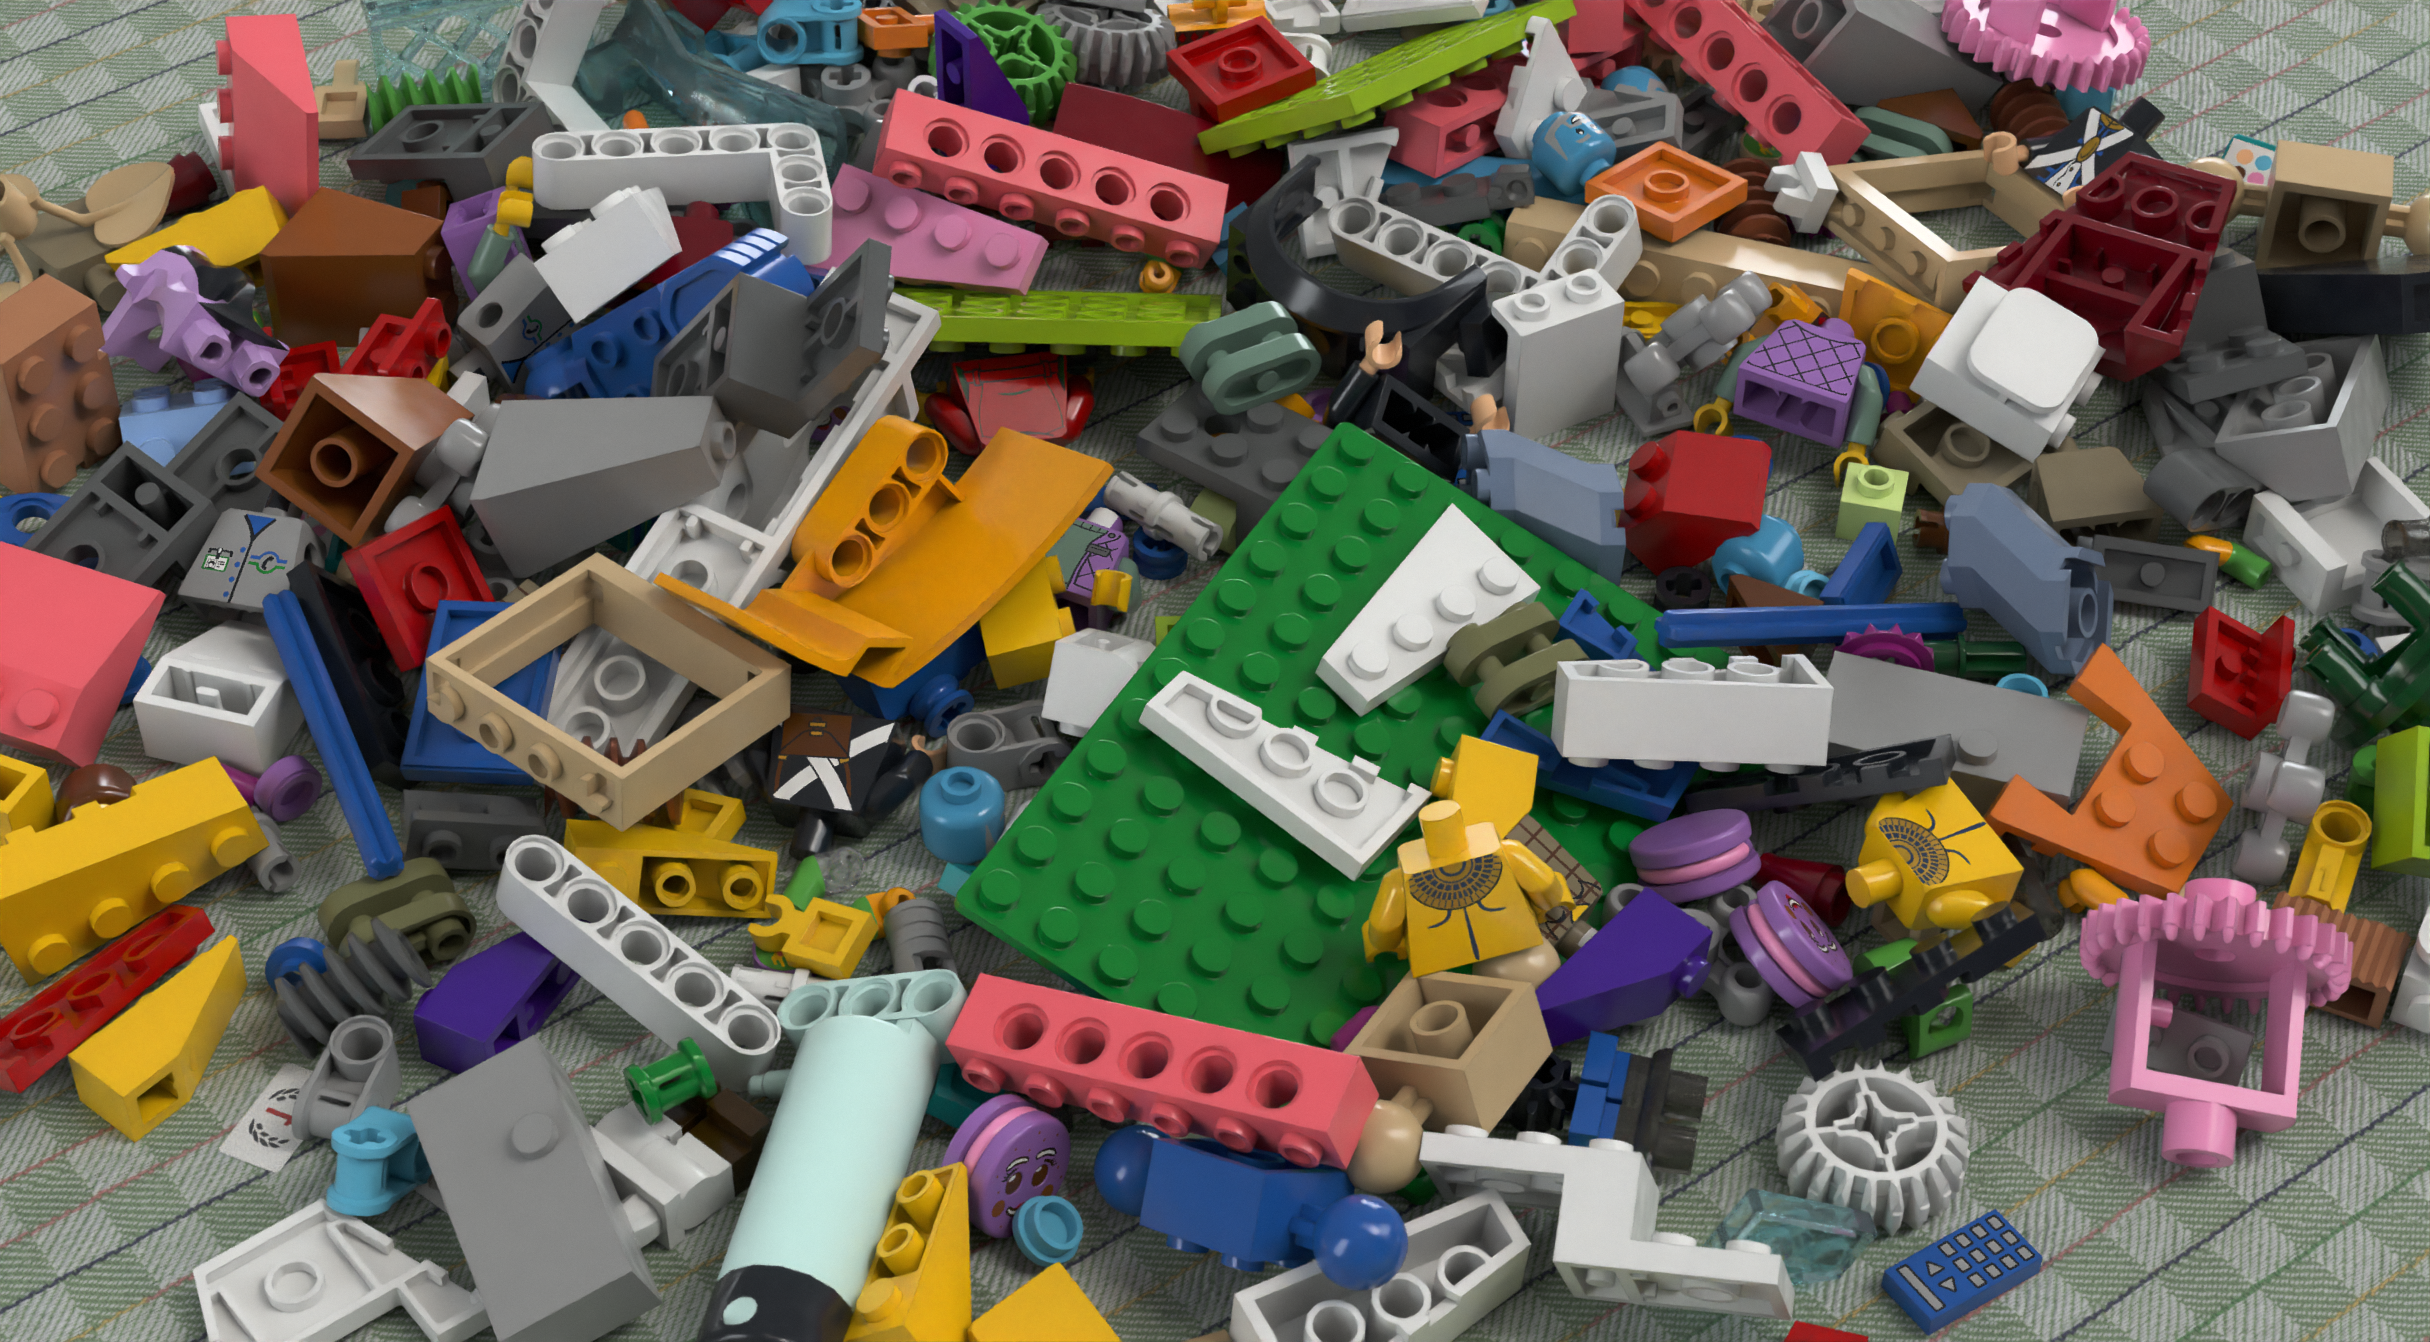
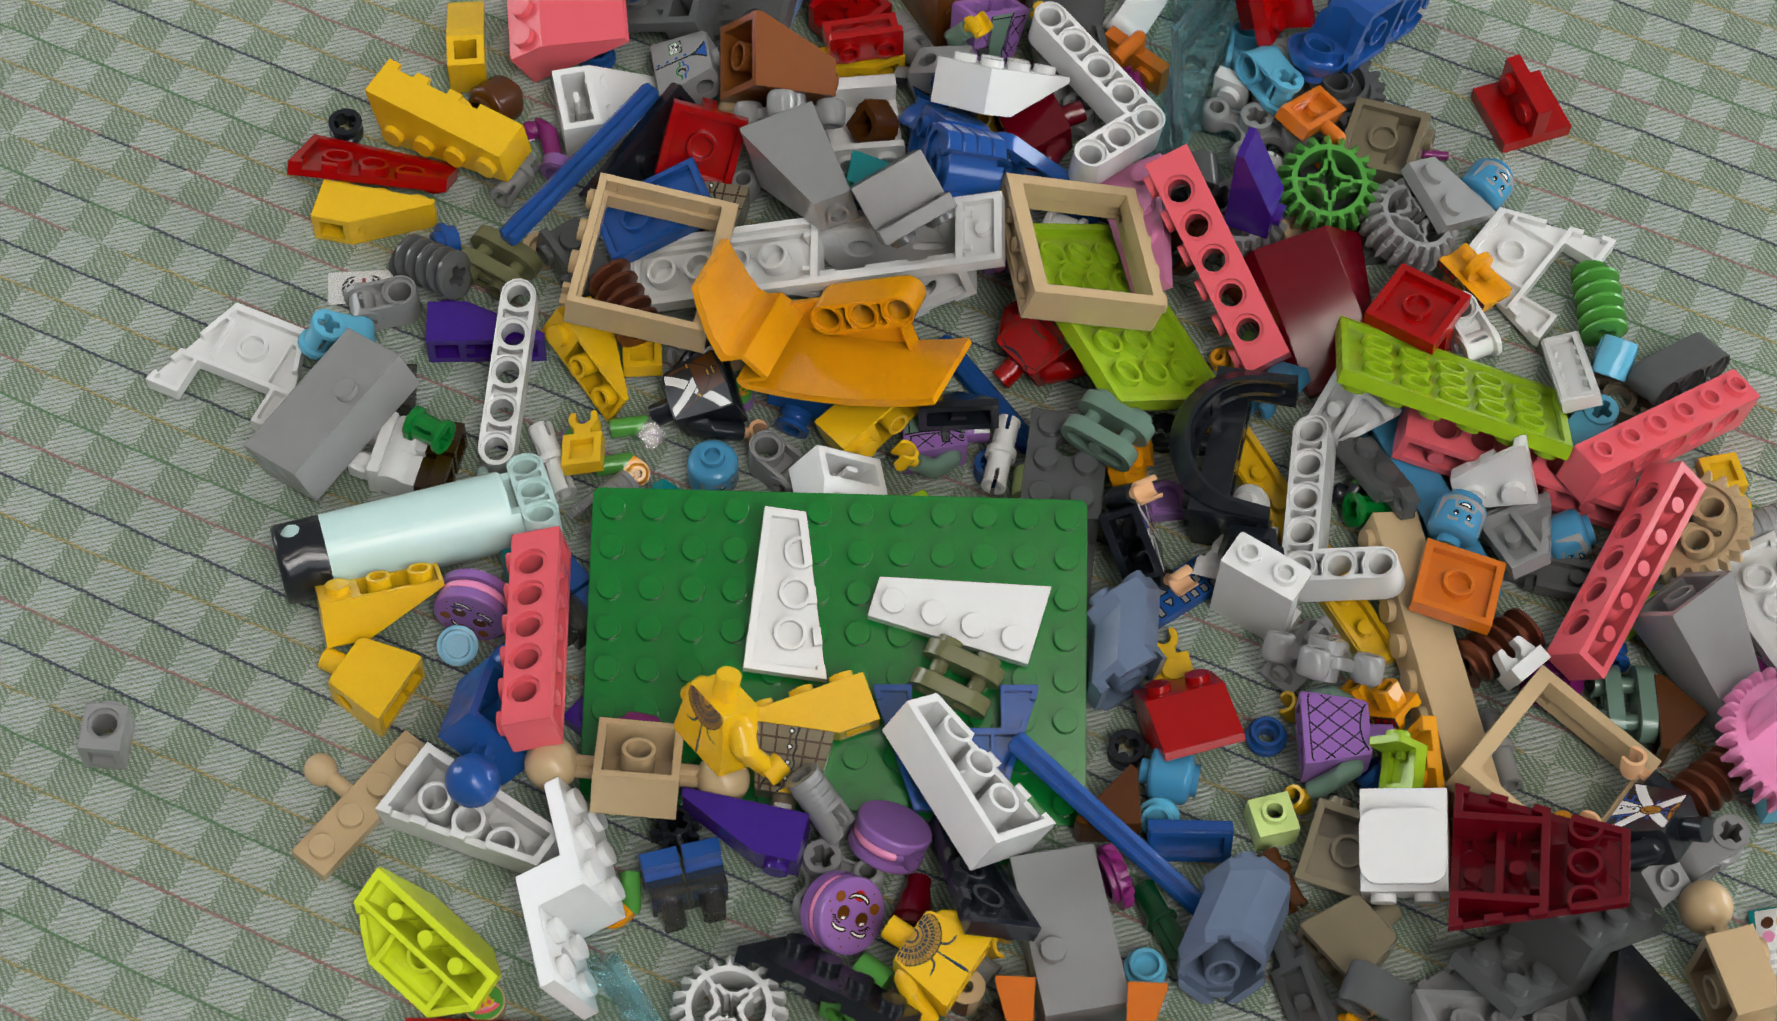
camera: 60 degrees right, 15 degrees up
(1064, 251) = (1078, 304): none -> tan window
(1092, 521) = (959, 412): none -> black slope
(1620, 870) = (820, 801): none -> light grey hinge
(1894, 328) = (1402, 759): none -> lime bracket

